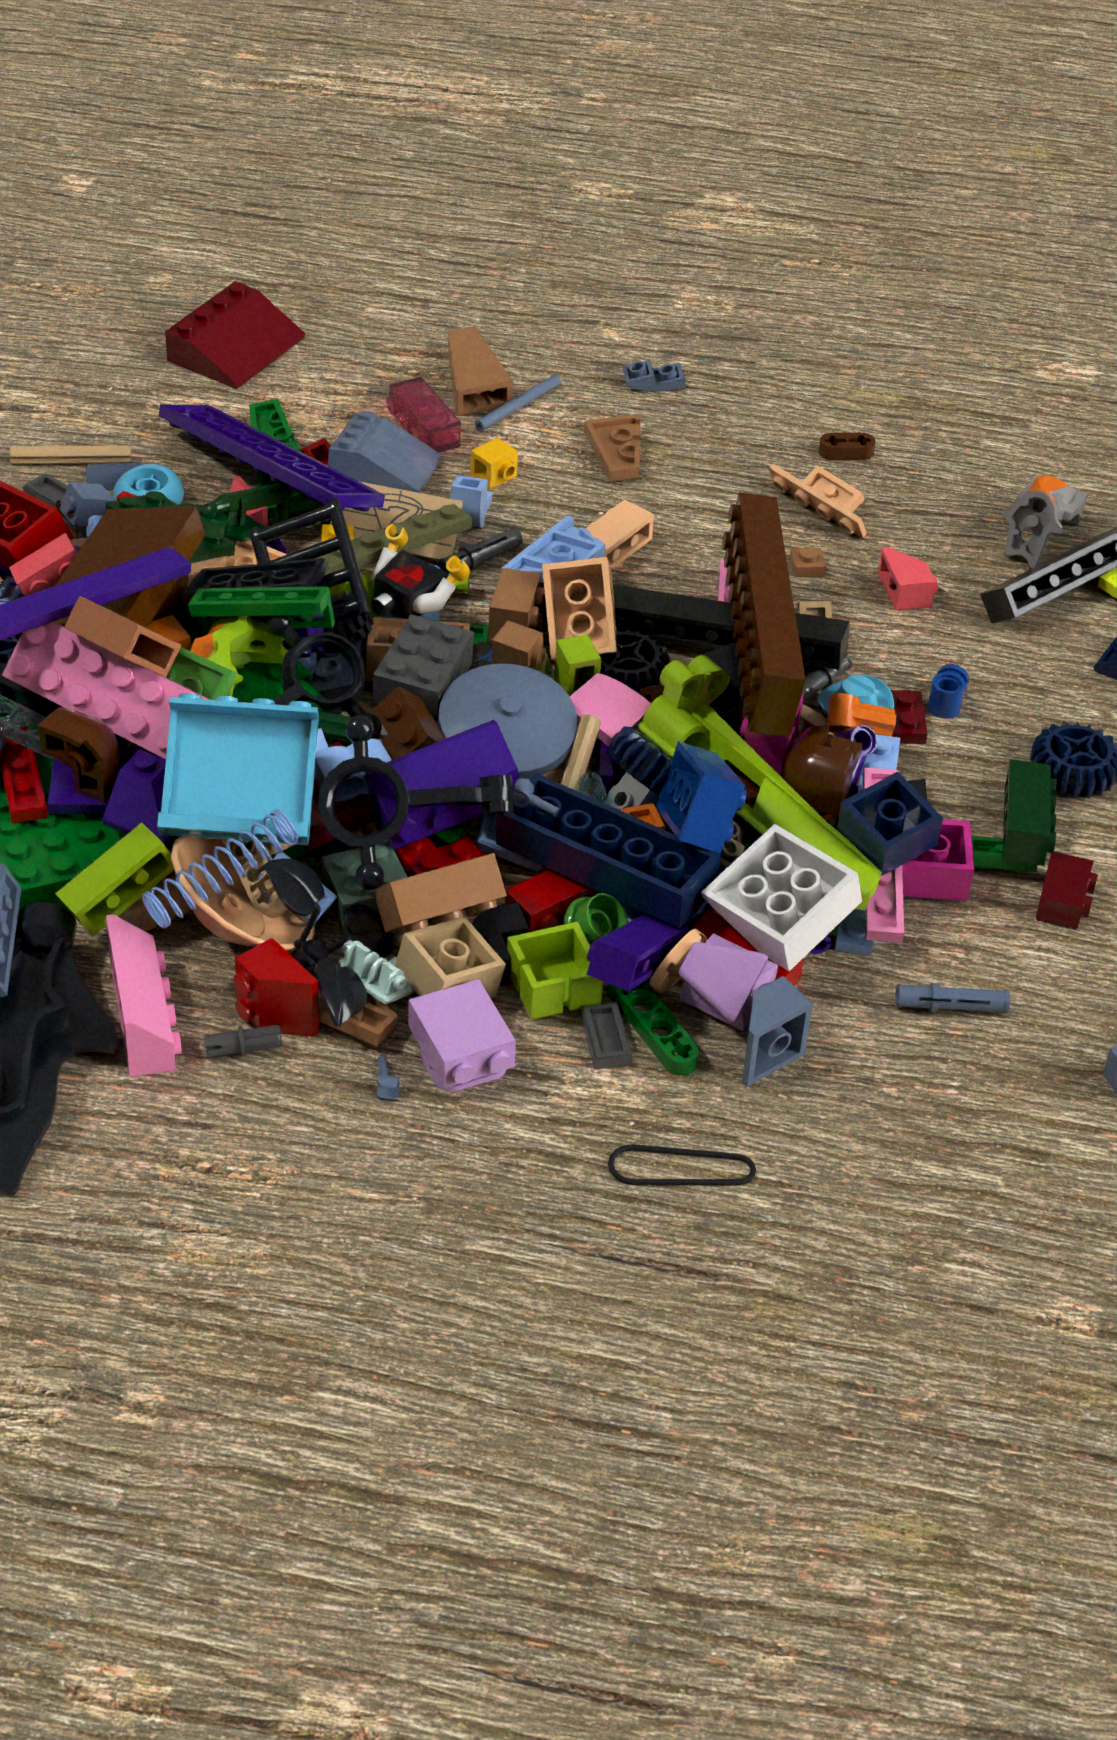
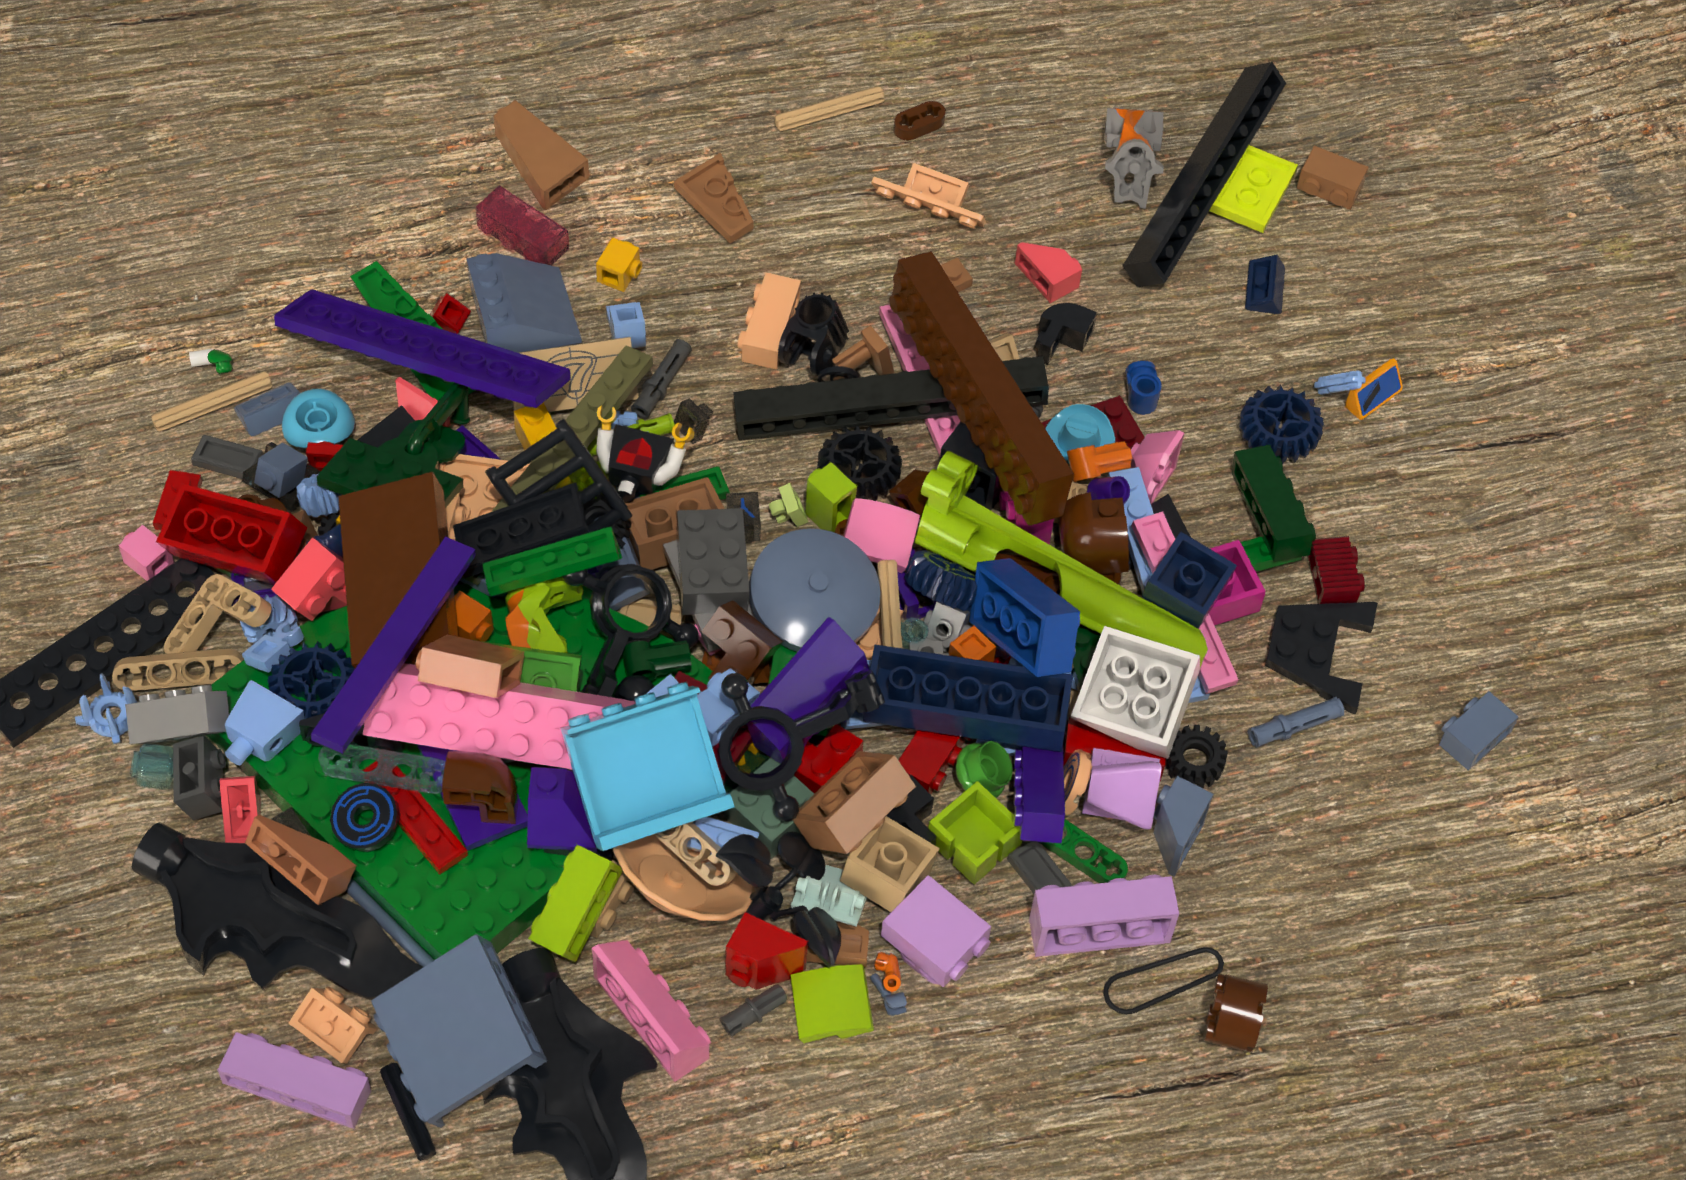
camera: 25 degrees left, 15 degrees up
(95, 428) = (212, 356): none -> arm
(232, 336) = (284, 191): dark red slope -> none
(286, 832) = (648, 935): light blue piece -> none
(324, 1062) = (831, 1002): none -> lime slope
(397, 1057) = (892, 973): none -> orange arm
(484, 586) = (693, 416): none -> clear smoke tile
(516, 600) = (742, 450): medium nougat brick -> none
(517, 403) = (595, 175): sand blue piece -> none
(518, 646) = (773, 497): medium nougat brick -> none
(524, 795) = (884, 679): sand blue hand -> none
(558, 545) = (747, 369): light blue wing -> none
(580, 602) = (804, 429): light nougat slope -> none
(641, 1078) = (1103, 915): none -> lavender brick
(642, 377) = (703, 98): sand blue slope -> none
(645, 541) = (817, 320): none -> black piece
(674, 580) = (869, 349): none -> medium nougat piece
(734, 1208) = (1236, 1012): none -> reddish brown brick
(765, 415) = (829, 108): none -> tan axle
(834, 978) = (1206, 743): none -> black tyre
(893, 622) = (1065, 325): none -> black brick
(926, 747) = (1157, 459): none -> bright pink slope
(1005, 937) = (1305, 644): none -> black wing

